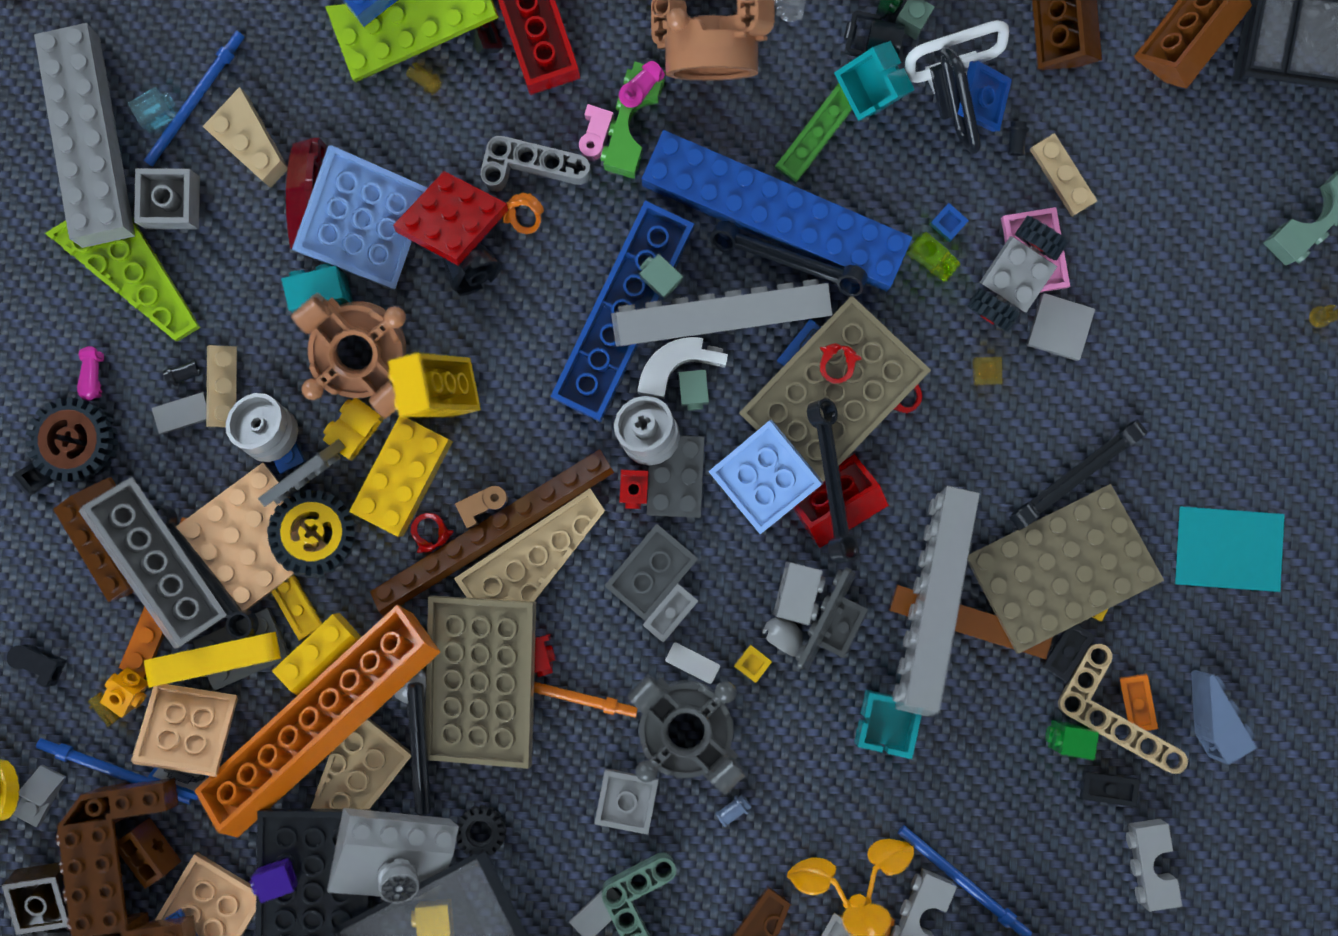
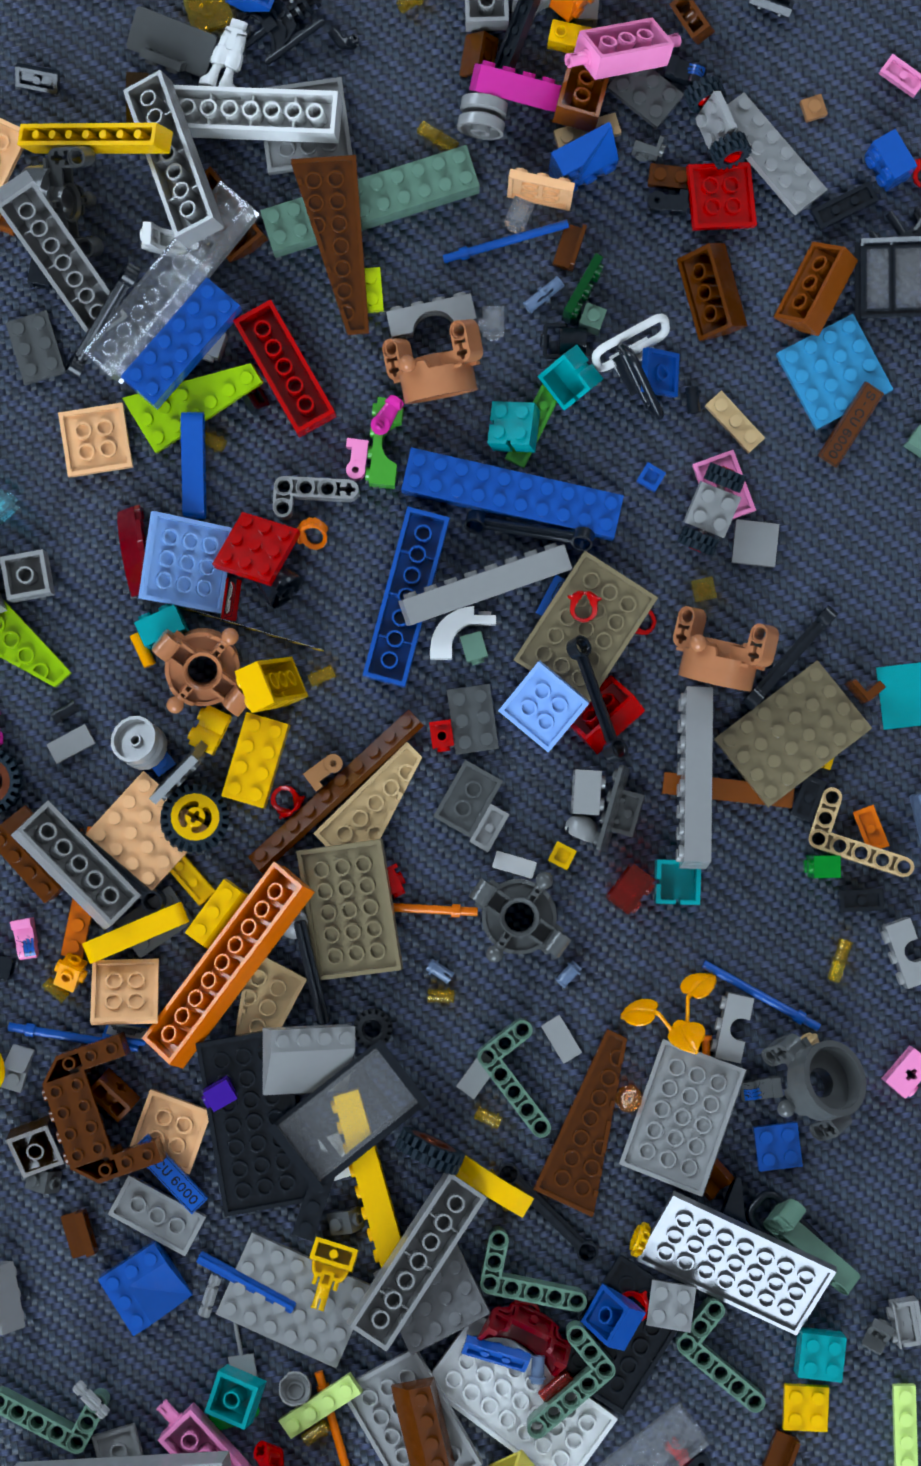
camera: 15 degrees left, 0 degrees up
(79, 639) = (25, 938): none -> bright pink leg
(220, 384) = (98, 715): tan plate -> none
(224, 56) = (49, 452): blue bar -> none
(245, 136) = (78, 514): tan wedge -> none
(283, 51) = (95, 440): none -> light nougat plate
(292, 328) = (144, 653): none -> light orange axle
(394, 101) = (193, 465): none -> blue beam
(398, 881) = (316, 1075): light grey wheel -> none
(410, 274) = (231, 599): none -> sticker
(426, 314) = (249, 628): none -> sticker
(501, 388) = (321, 676): none -> clear yellow pin
(574, 807) = (441, 996): none -> clear yellow pin
(575, 775) = (439, 970): none -> sand blue pin
(626, 802) = (482, 983): light grey plate -> none
(647, 430) = (443, 687): light grey wheel -> none
(660, 276) = (431, 564): sand green brick -> none
(709, 888) = (561, 1039): none -> light grey tile
(796, 123) = (513, 423): none -> teal piece
(829, 722) = (630, 889): none -> clear red brick
(933, 256) = (644, 507): clear neon green leg -> none
(993, 462) = (719, 660): none -> nougat piece
(1069, 857) = (839, 960): none -> clear yellow axle
(1161, 536) = (864, 695): none -> reddish brown panel
(1196, 137) = (831, 370): none -> dark azure plate
(1205, 203) = (850, 424): none -> reddish brown tile

